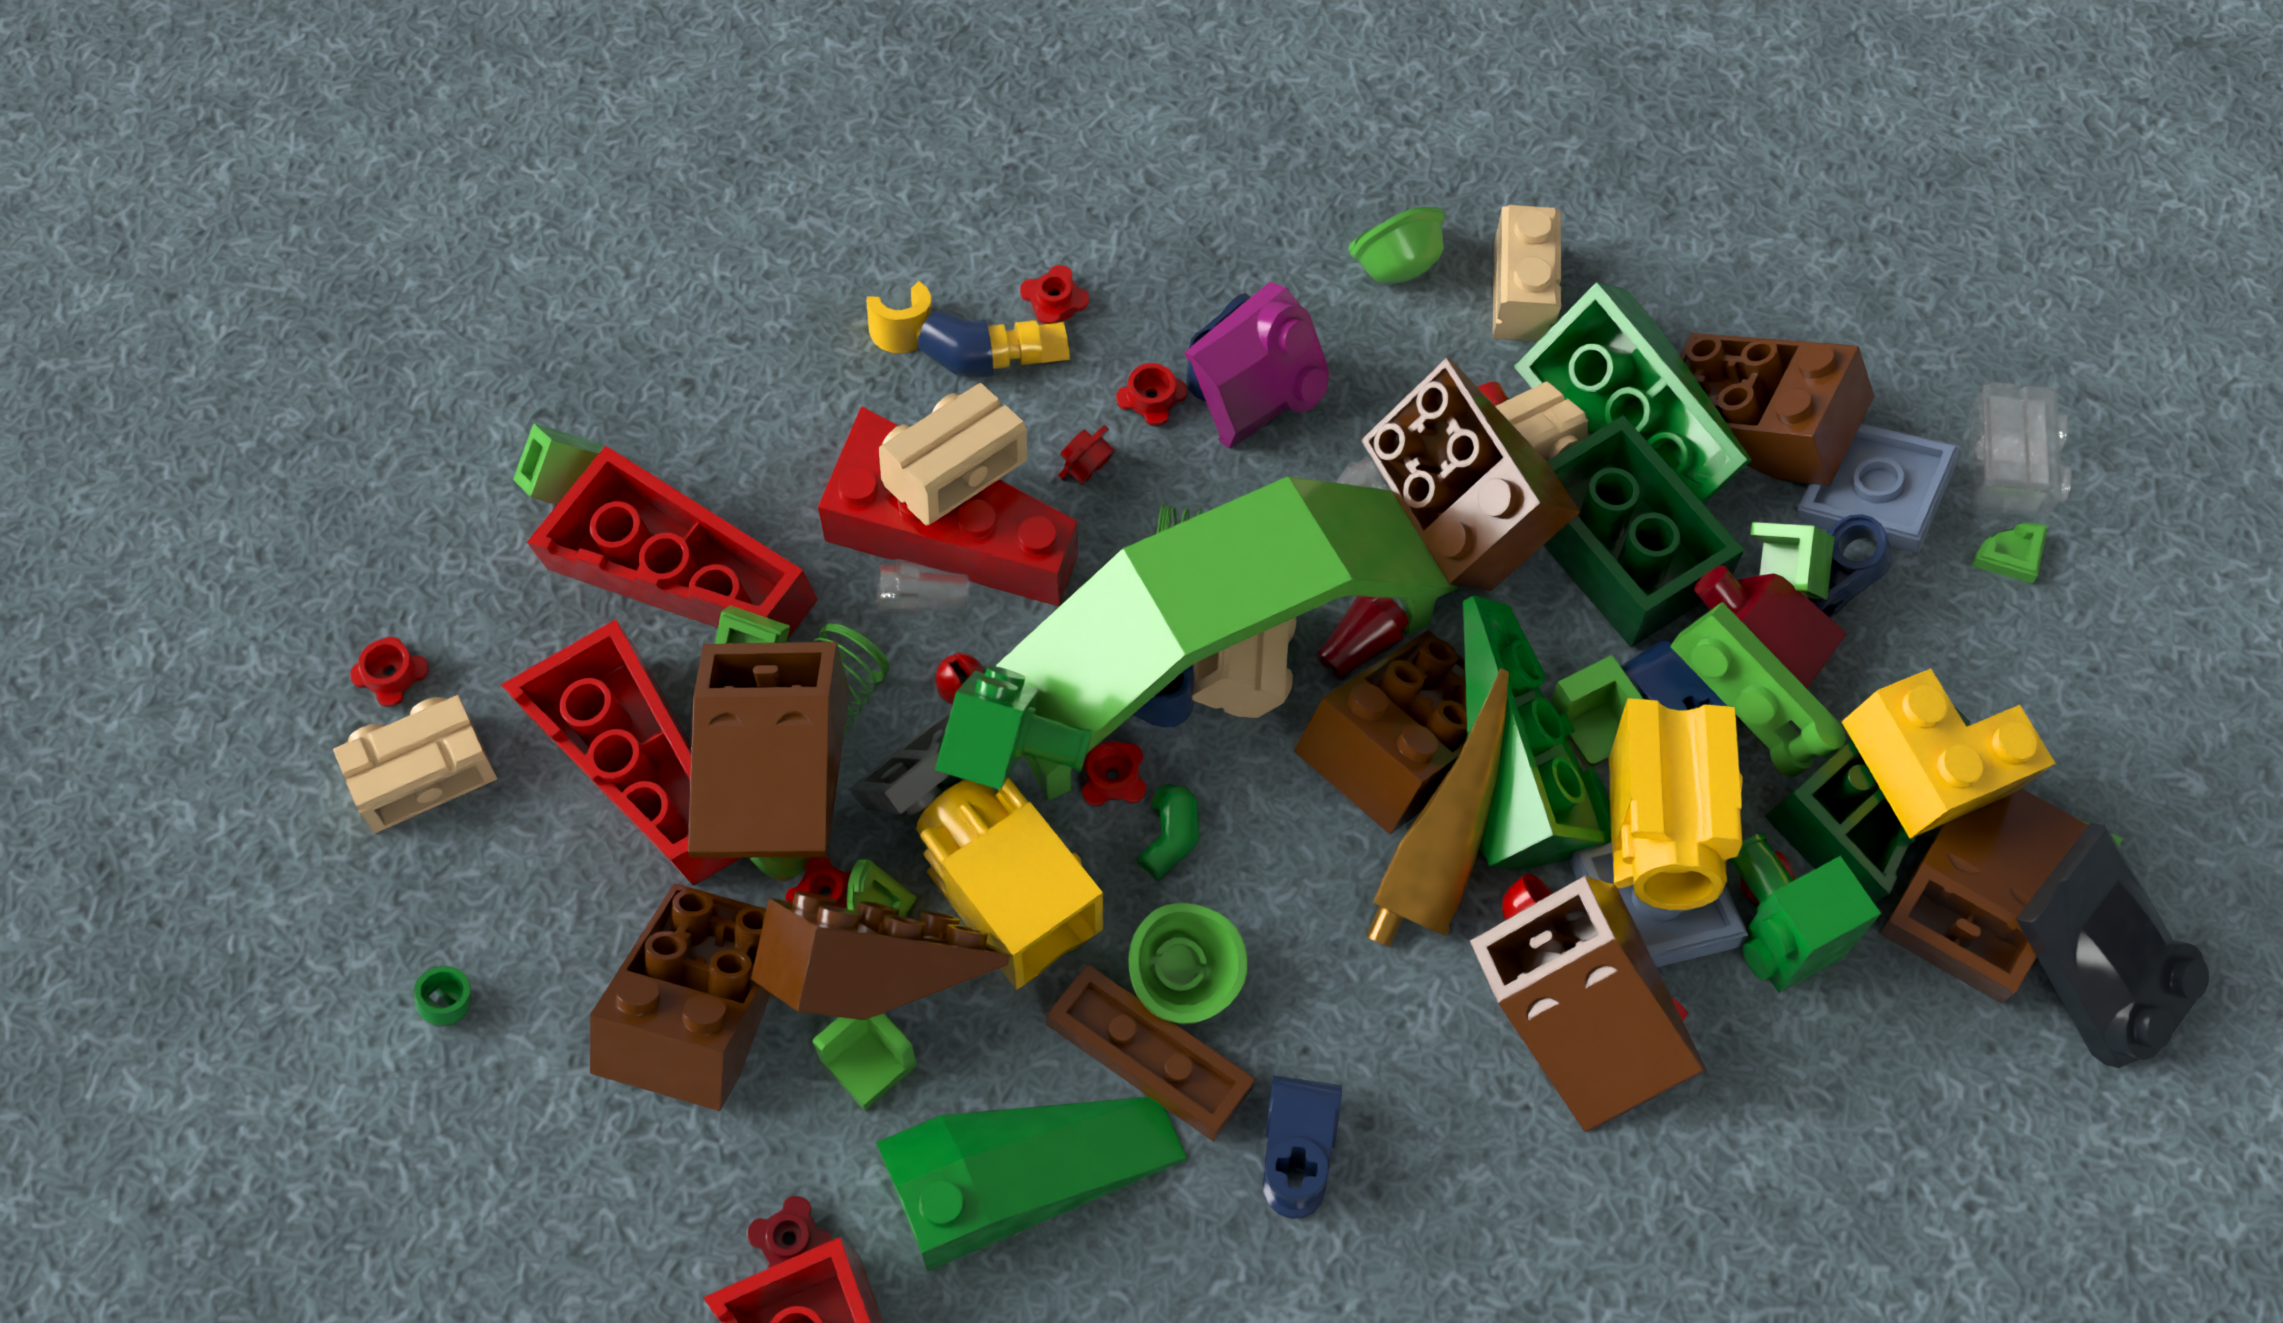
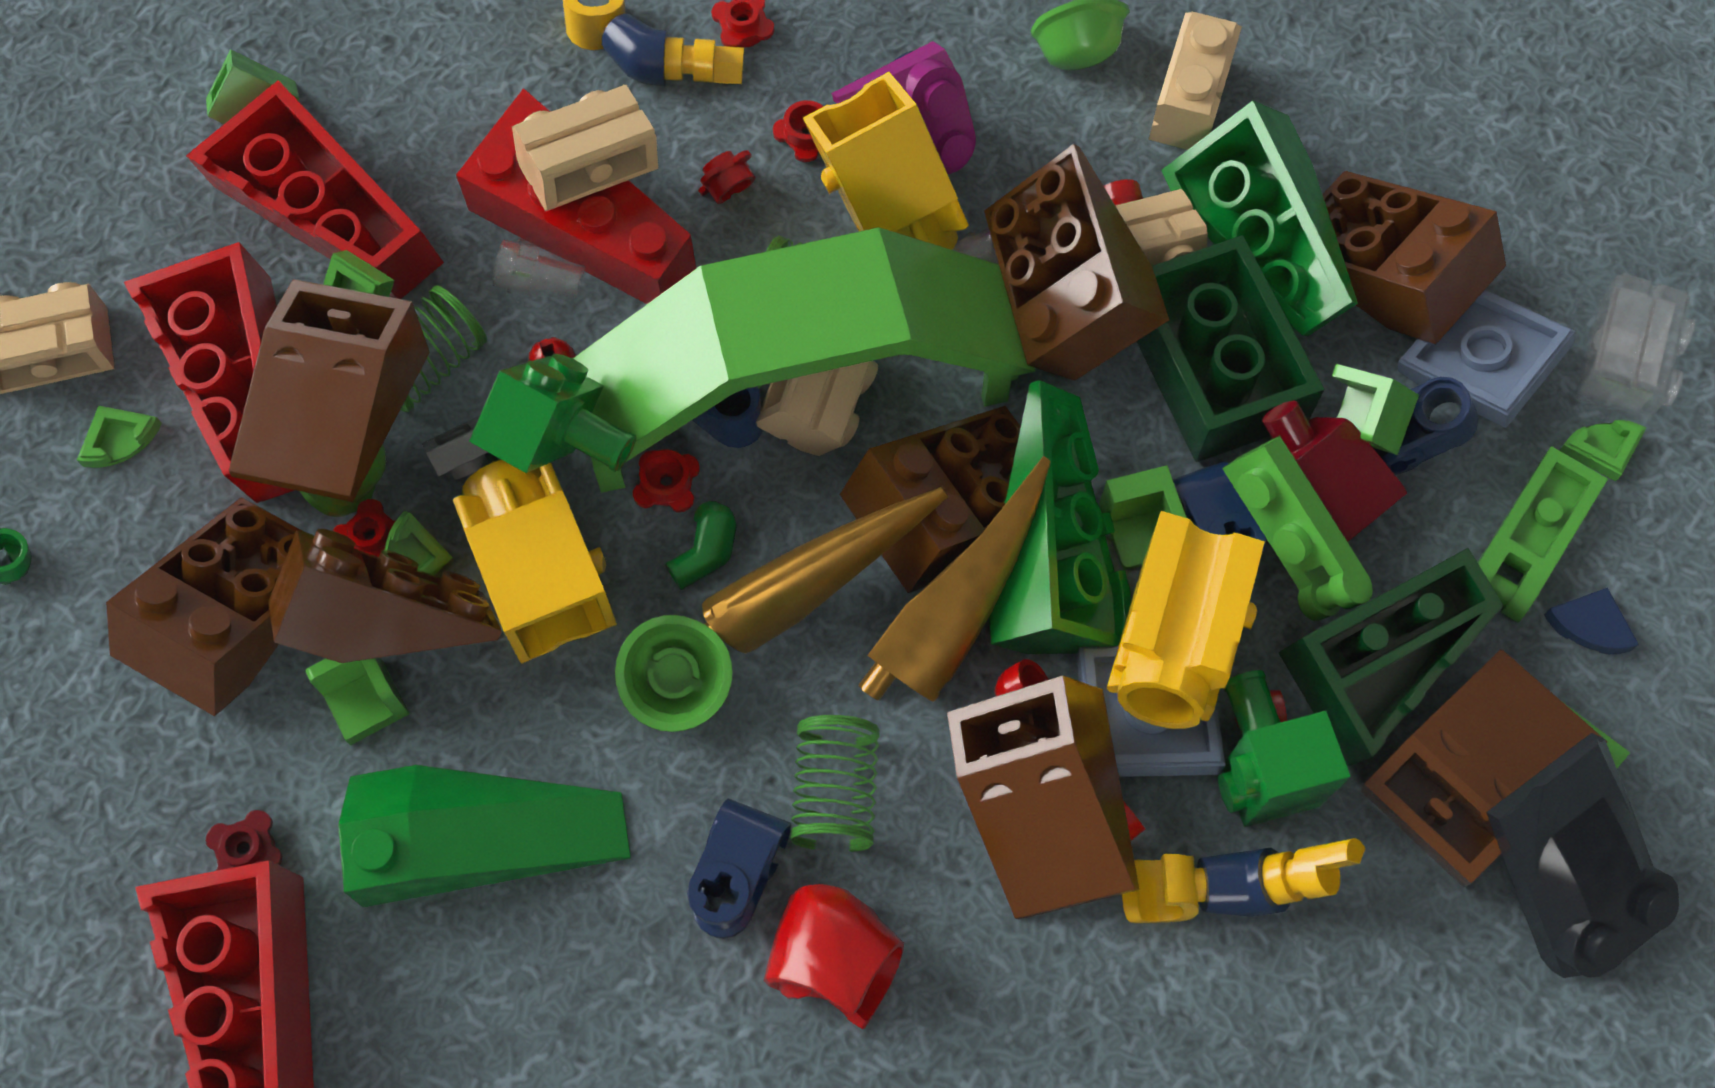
camera: 15 degrees right, 5 degrees up
(383, 655) = (36, 238): red plate -> none
(523, 847) = (115, 436): none -> bright green tile
(1150, 1052) = (622, 751): reddish brown plate -> none
(1259, 413) = (887, 164): none -> yellow piece
(1287, 841) = (805, 577): none -> pearl gold piece
(1362, 634) = (937, 397): dark red cone -> none
(1411, 1076) = (810, 738): none -> bright green piece
(1424, 1193) = (834, 951): none -> red piece
(1793, 1044) = (1237, 882): none -> yellow piece
(1933, 762) = (1448, 639): yellow brick -> none
(1978, 637) = (1539, 528): none -> bright green plate
(2059, 722) = (1593, 623): none -> dark blue tile

